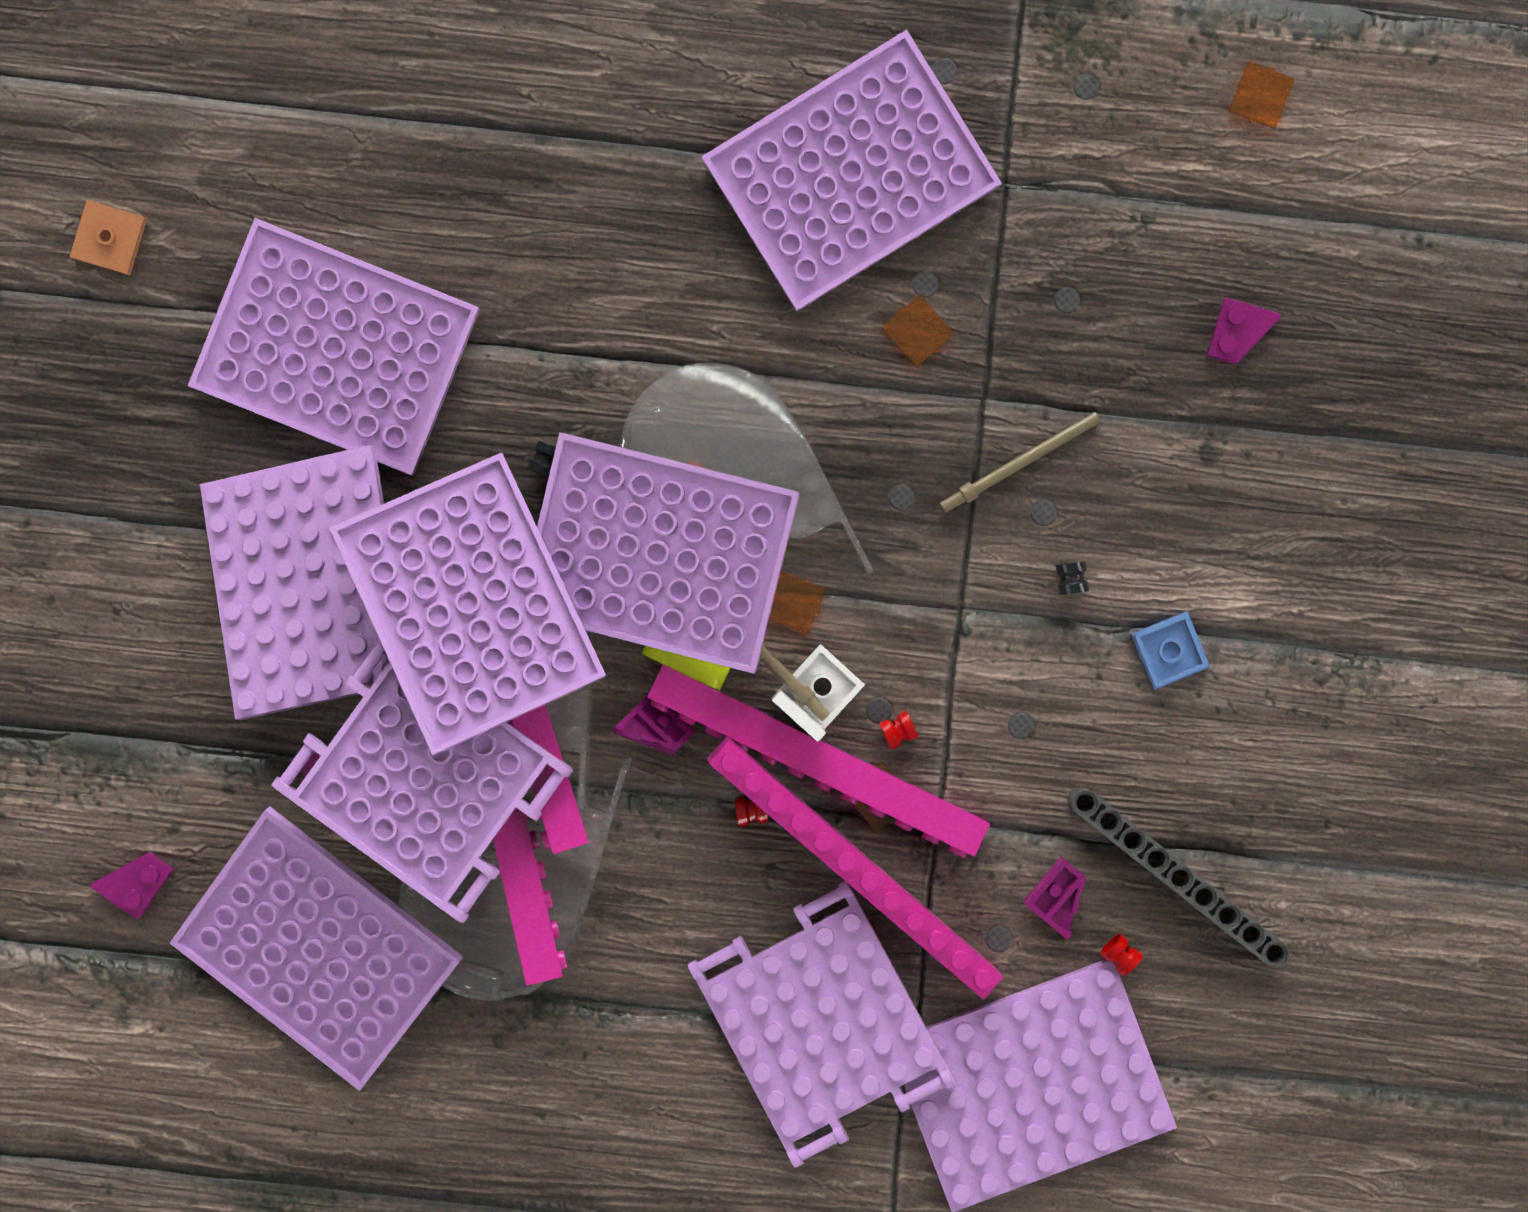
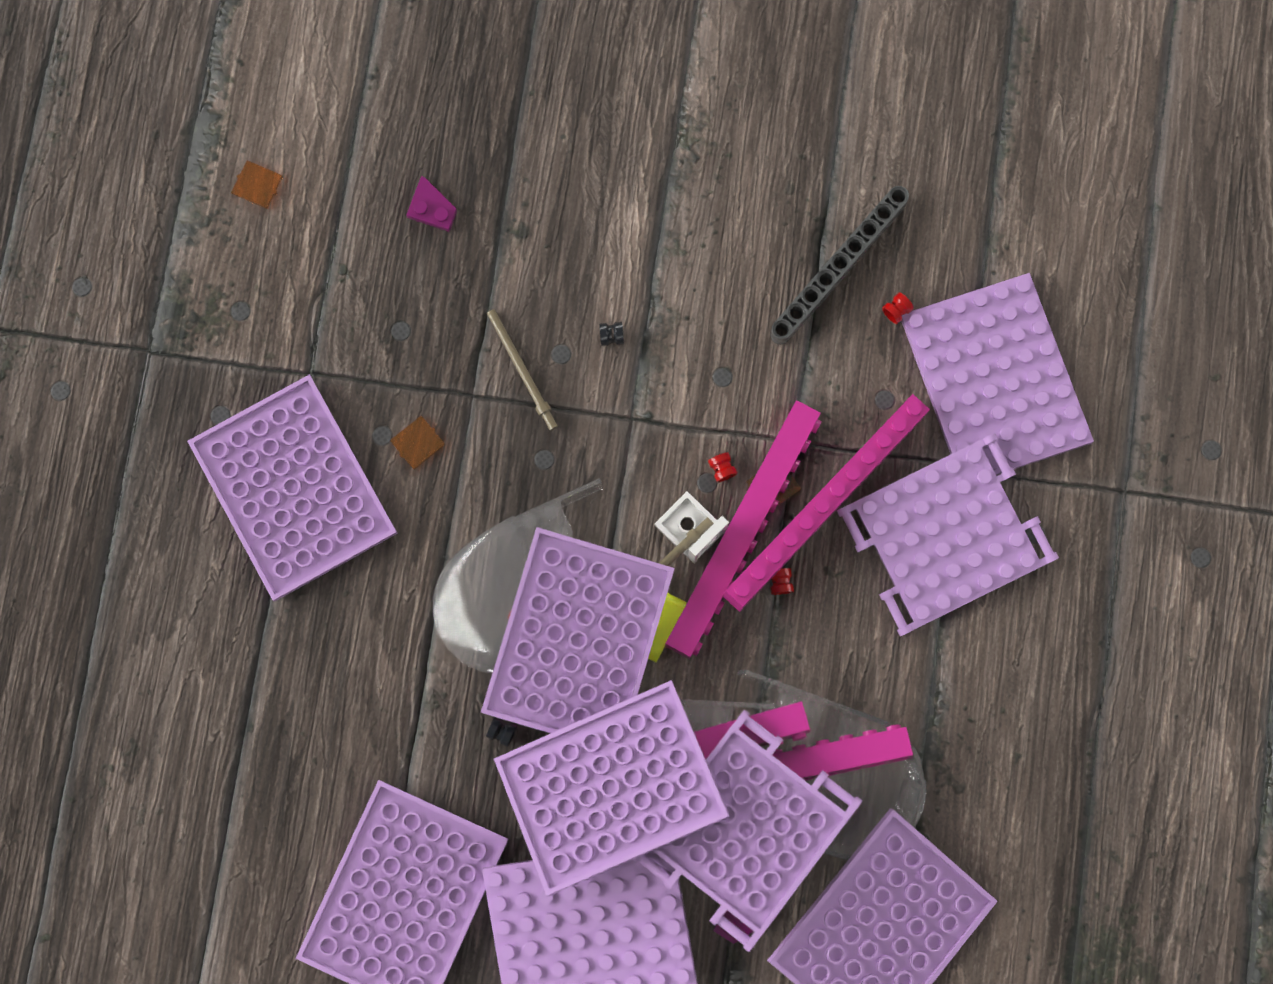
camera: 90 degrees left, 10 degrees down
(654, 728) = (714, 654): magenta wing -> none
(796, 602) = (623, 538): clear orange piece -> none
(1057, 896) = (852, 353): magenta wing -> none
(1170, 650) = (669, 265): medium blue tile -> none

